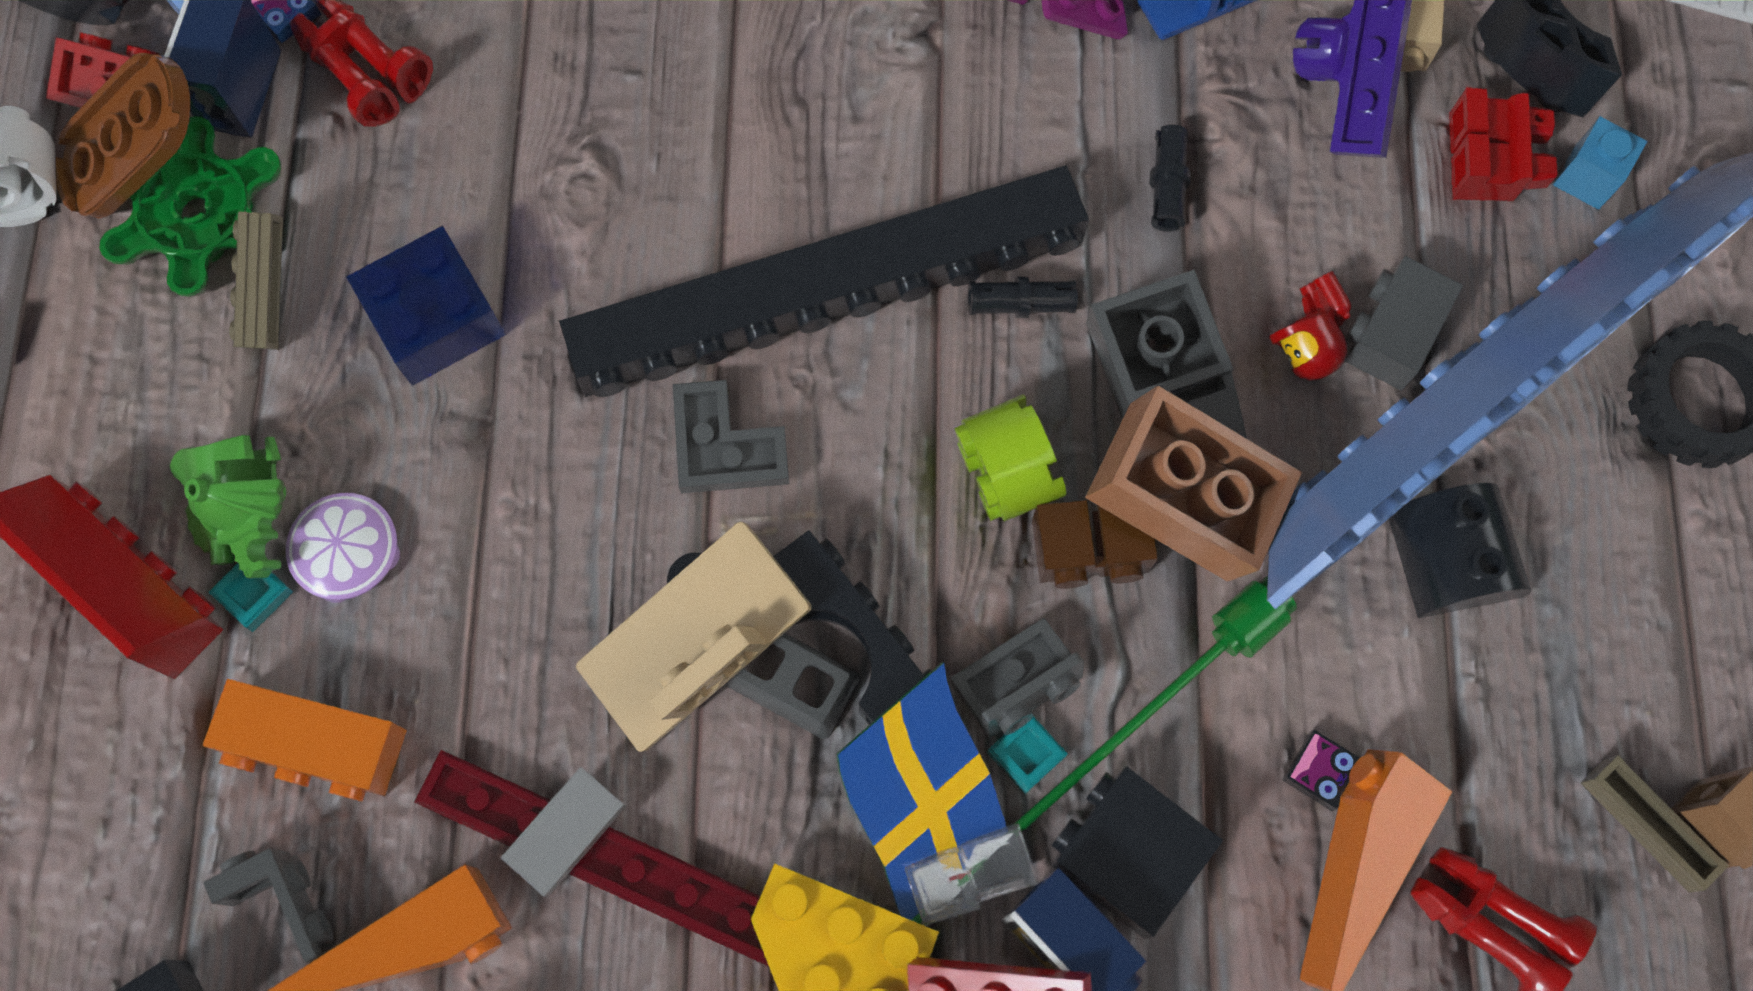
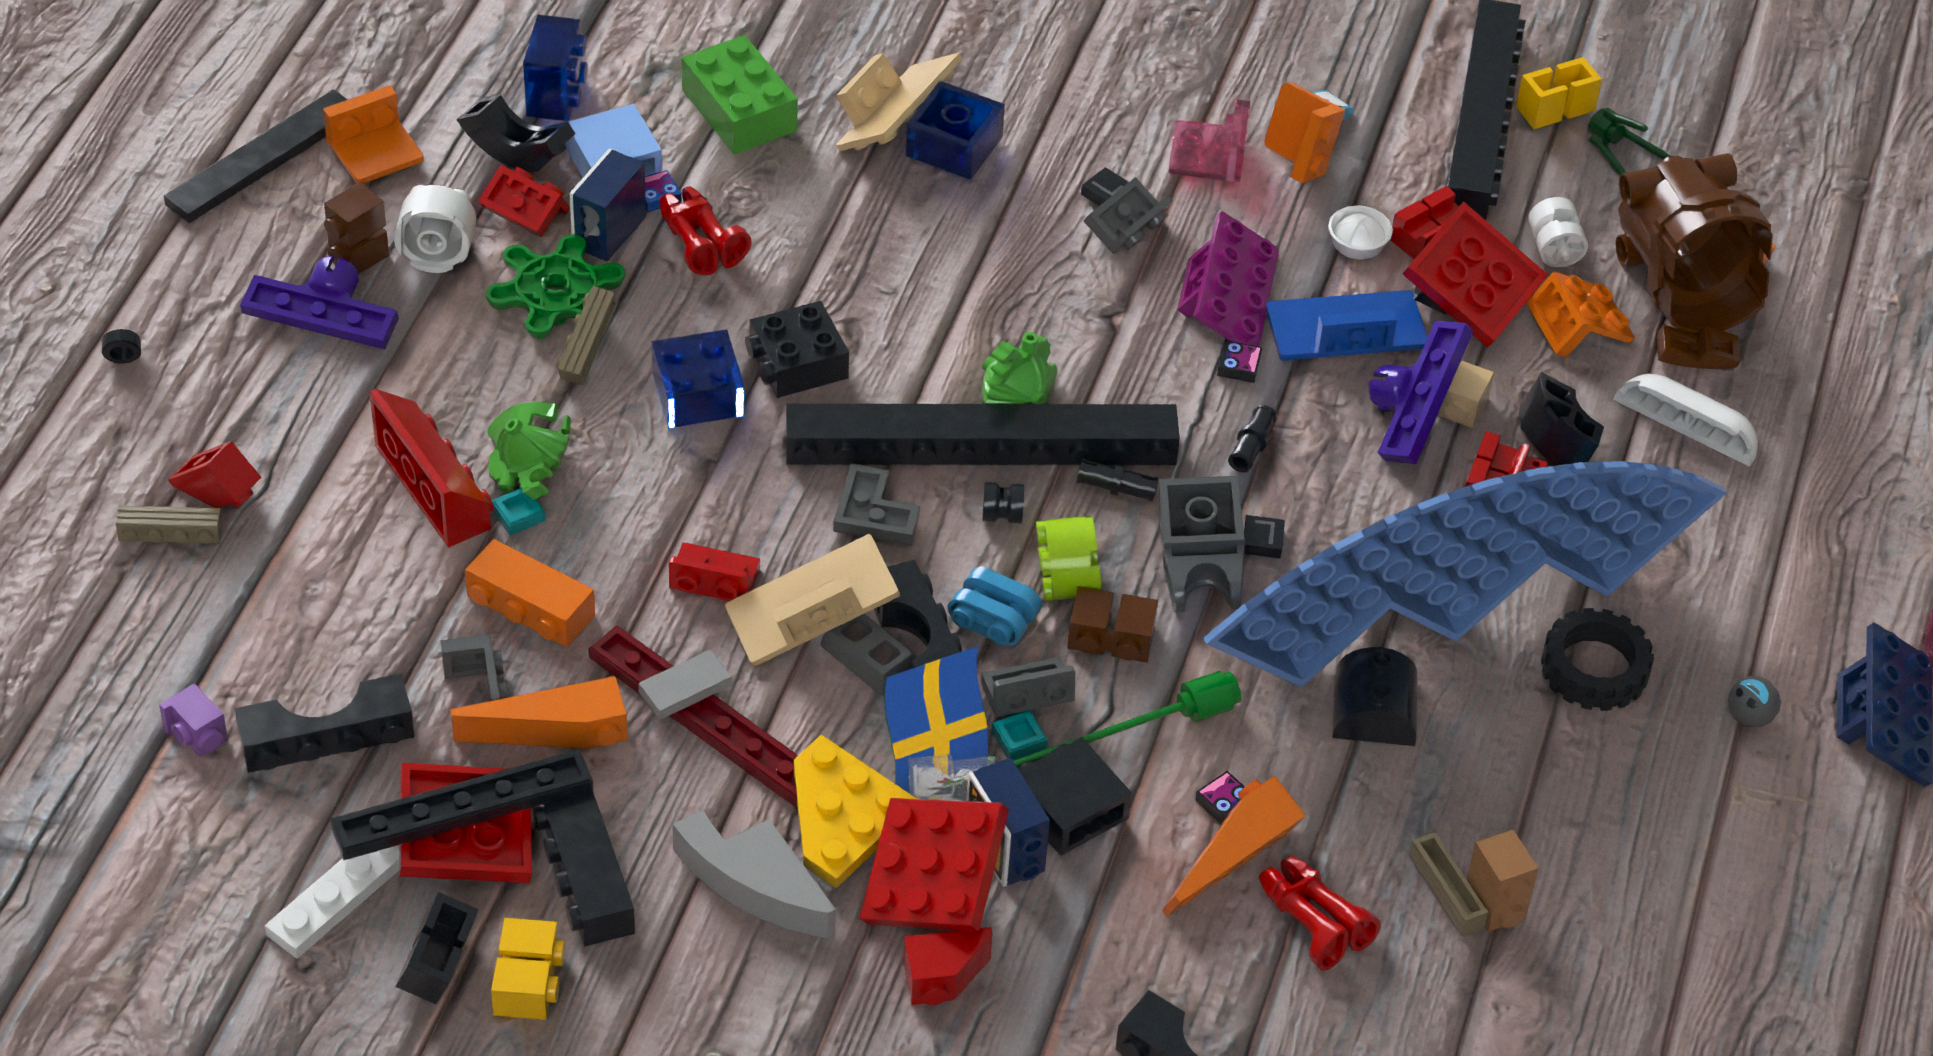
camera: 15 degrees right, 25 degrees down
(123, 135) = (529, 226): dark orange tile -> none
(341, 546) = (589, 501): dish -> none
(544, 215) = (798, 349): none -> black brick
(544, 614) = (712, 572): none -> red bracket
(849, 183) = (1019, 373): none -> bright green helmet
(901, 379) = (1003, 502): none -> black wheel
(950, 585) = (994, 606): none -> dark azure brick
(1111, 57) = (1239, 361): none -> tile
(1194, 485) = (1182, 585): nougat brick -> none
(1238, 325) = (1263, 536): none -> black tile
(1315, 341) = (1310, 542): red piece -> none

